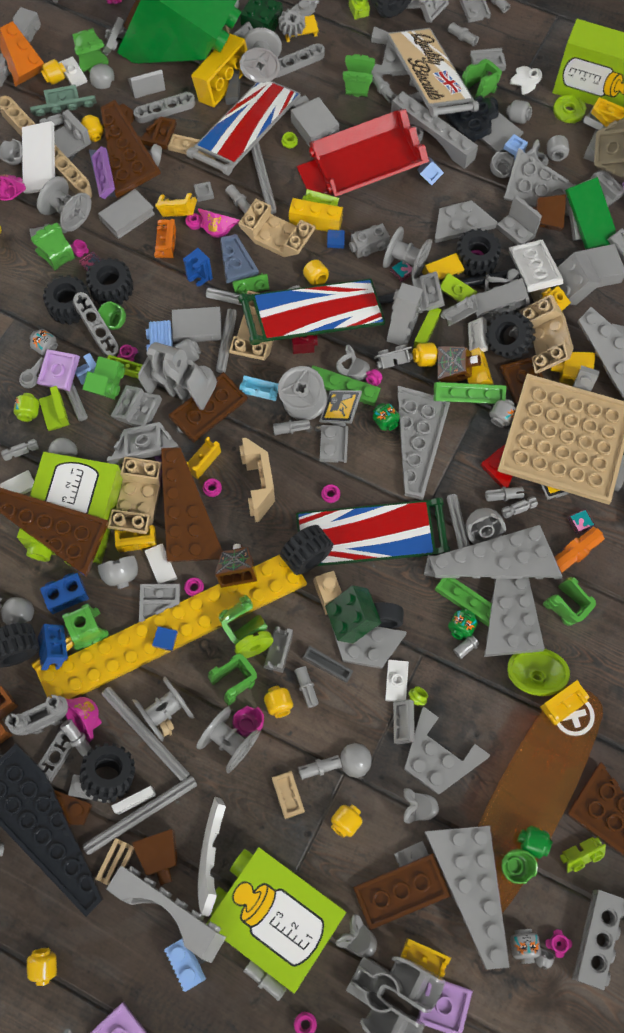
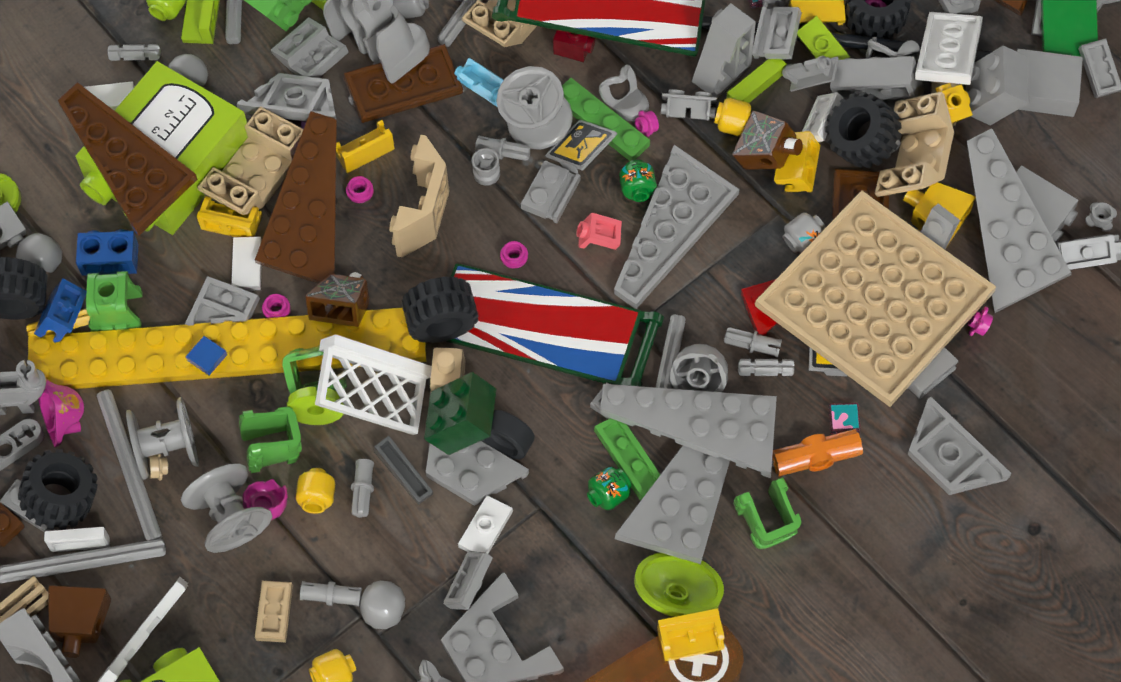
camera: 25 degrees right, 5 degrees down
(76, 737) = (39, 432): light grey pin -> none
(119, 572) = (187, 250): light grey cylinder -> none
(279, 650) = (345, 432): light grey hinge -> none
(286, 600) = (372, 360): none -> white fence
(287, 438) = (486, 166): none -> light grey wheel
(377, 458) = (599, 231): none -> coral bracket
(418, 695) = (503, 556): lime plate -> none
(466, 646) = (600, 519): light grey pin -> none
(468, 393) = (767, 188): bright green plate -> none

